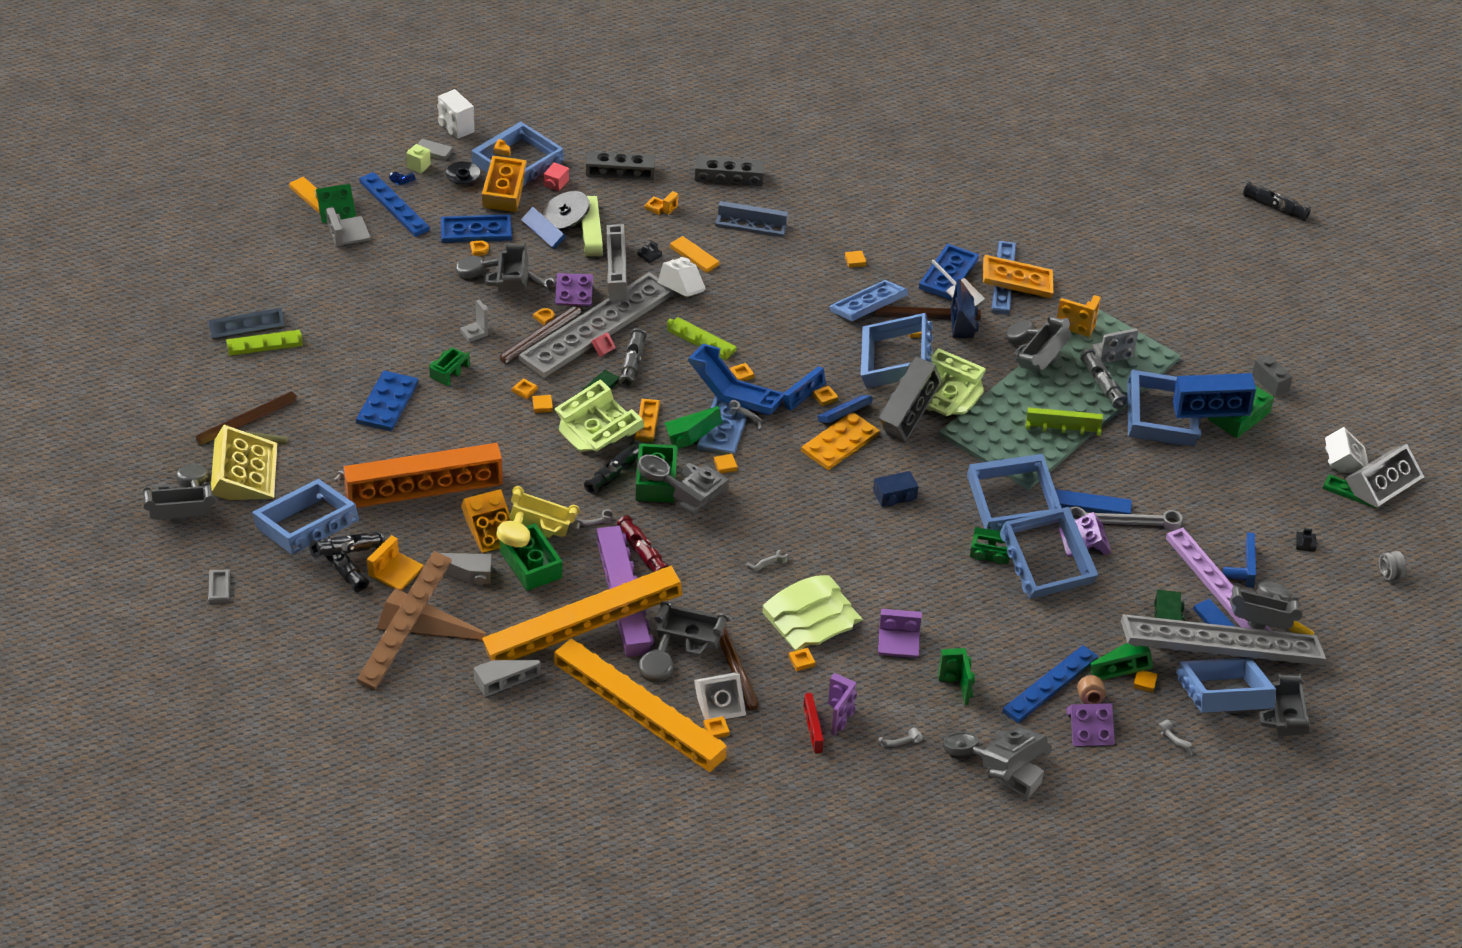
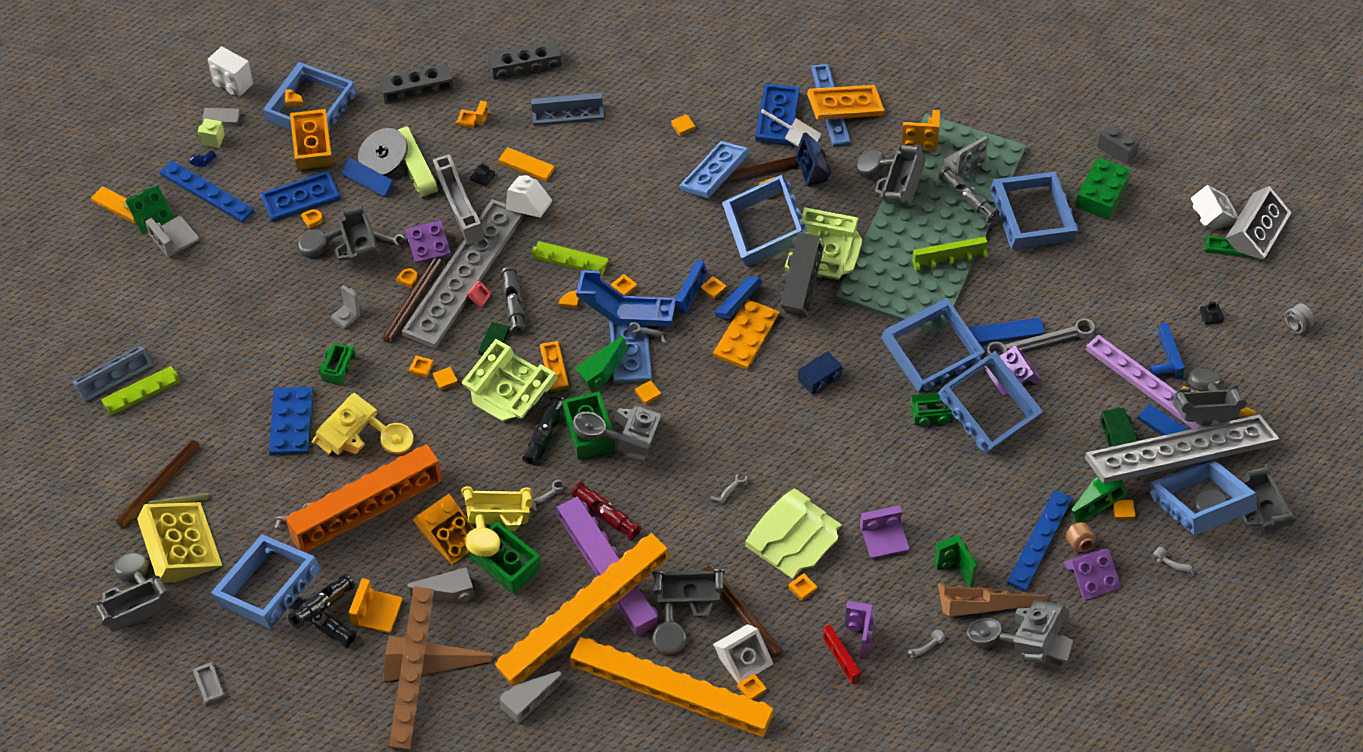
camera: 15 degrees left, 10 degrees up
(438, 410) = (350, 419): none -> light yellow piece
(462, 172) = (260, 131): black dish -> none
(556, 176) = (357, 115): coral brick -> none
(685, 371) = (569, 300): none -> light orange tile
(958, 713) = (966, 600): none -> medium nougat wedge
(1214, 395) = (1082, 188): blue brick -> none

